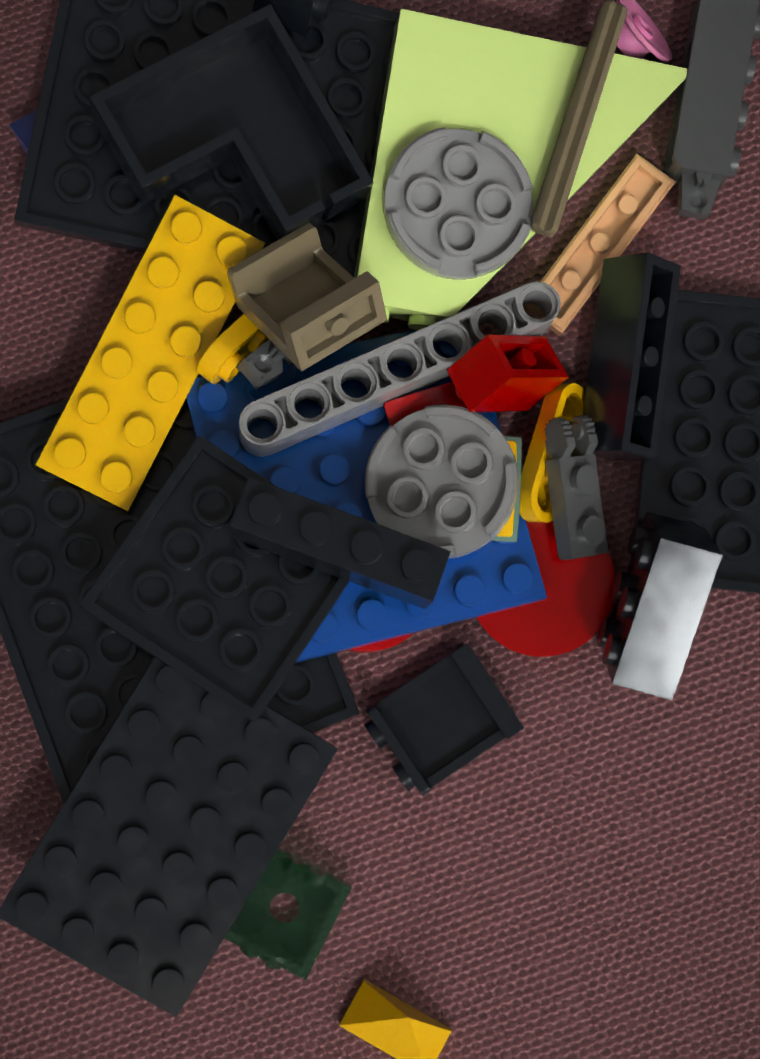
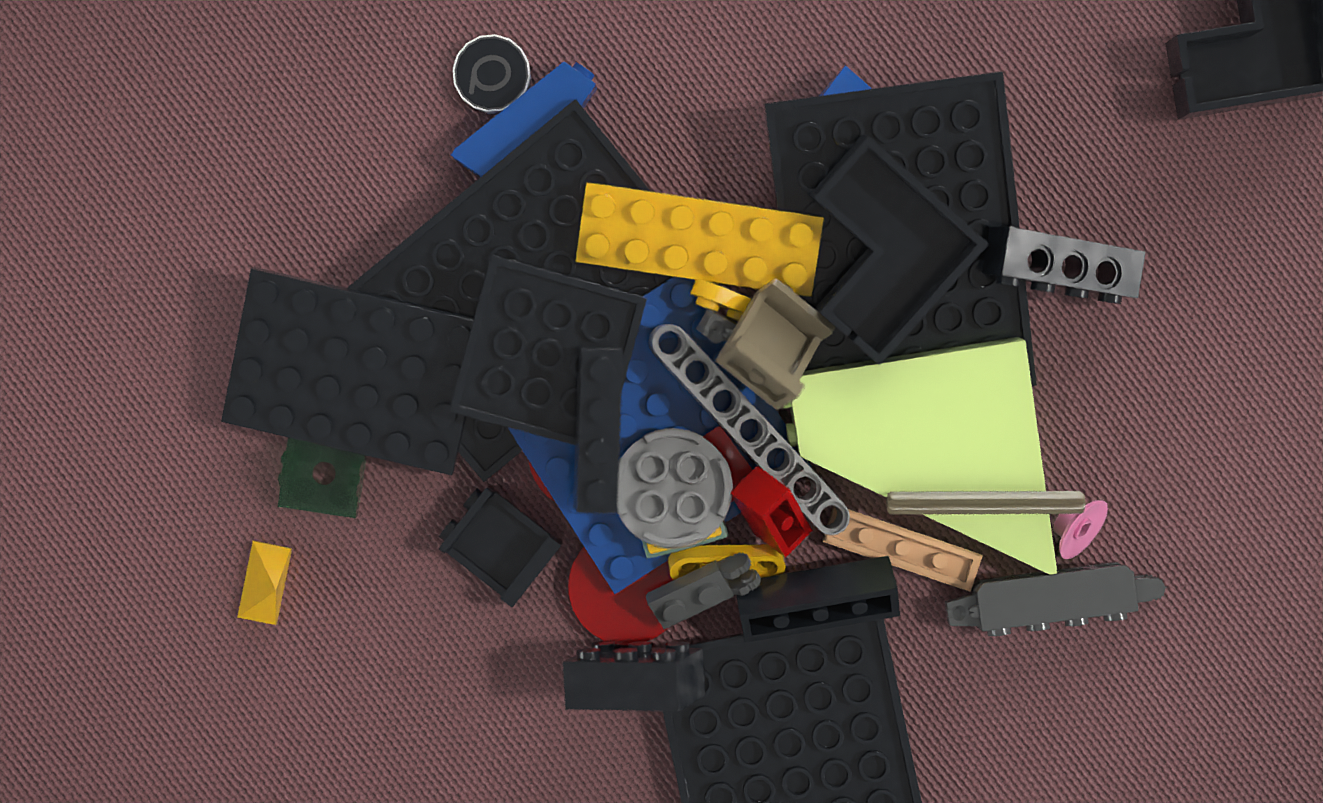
camera: 75 degrees right, 5 degrees up
(458, 203) = (888, 433): light grey tile -> none

